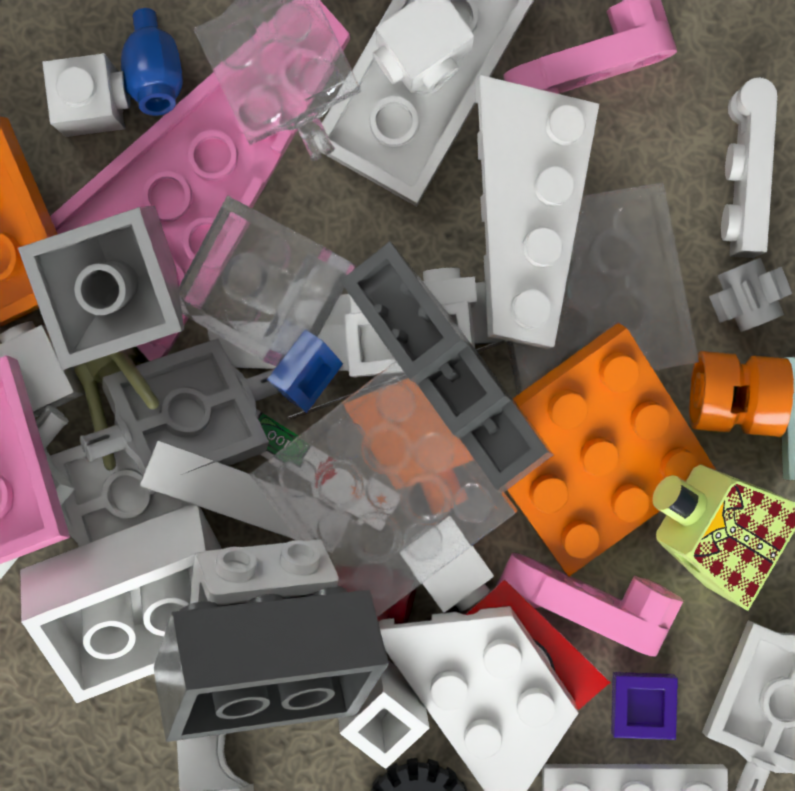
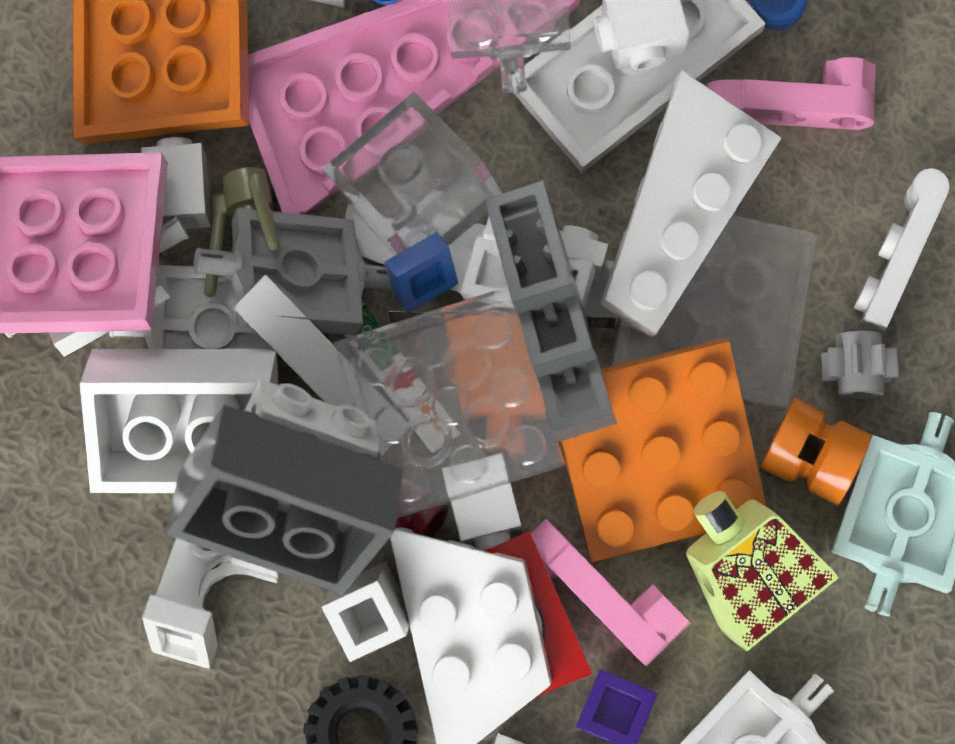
camera: 25 degrees right, 10 degrees down
(105, 286) = (274, 124): light grey slope -> none

